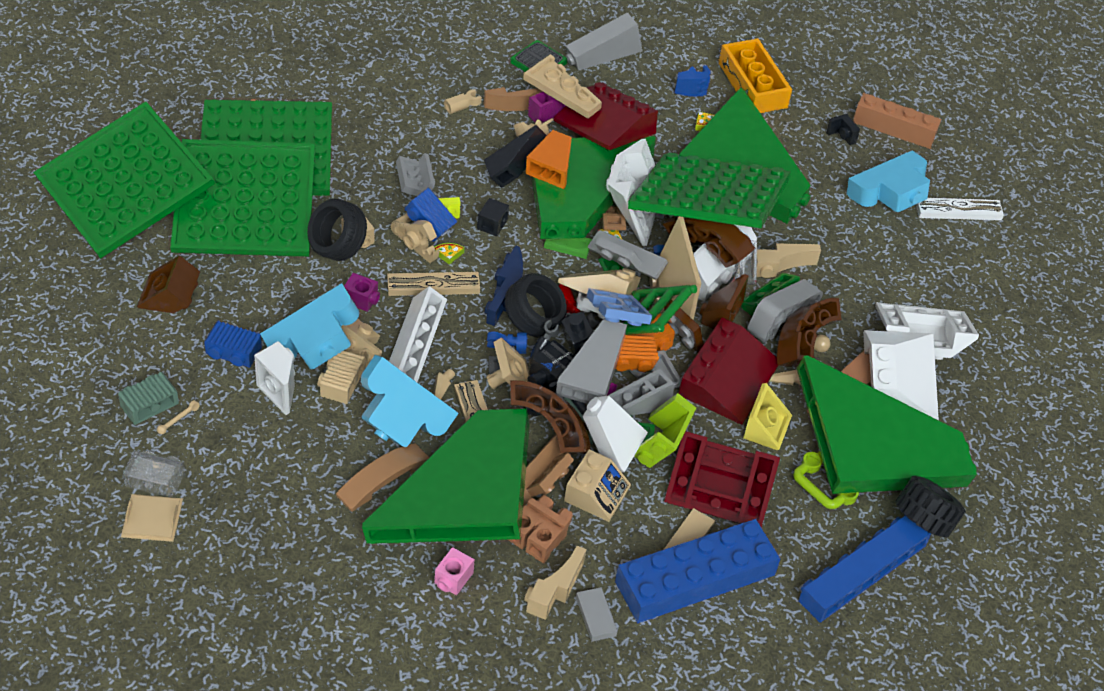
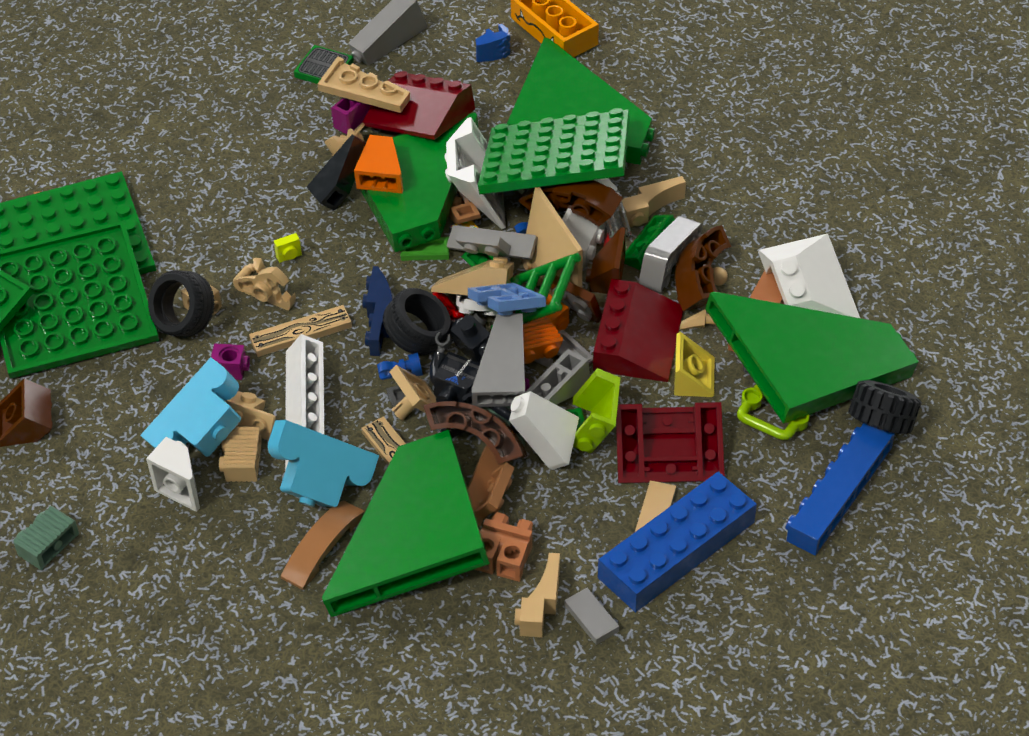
camera: 10 degrees left, 0 degrees up
(152, 517) = (96, 659): tan piece -> none
(154, 473) = (82, 613): clear brick -> none
(193, 406) = (96, 532): tan hinge -> none
(233, 344) = (114, 455): blue brick -> none
(415, 175) = (241, 223): light grey bracket -> none
(430, 208) = (270, 253): blue brick -> none
(442, 382) = (348, 429): tan bar -> none
(449, 251) = (305, 292): tile -> none
(456, 563) = (432, 608): bright pink brick -> none
(462, 101) = (259, 132): tan bar -> none
(493, 217) = (337, 243): black brick -> none
(512, 101) = (303, 119): medium nougat slope -> none
(597, 486) = (546, 487): tan slope -> none
(702, 120) = (517, 81): tile -> none
(845, 127) = (665, 49): black bracket -> none
(895, 183) = (734, 91): medium azure brick -> none
(896, 120) = (713, 27): nougat brick -> none
(950, 328) = (841, 222): white slope -> none
(960, 209) = (806, 100): white tile -> none

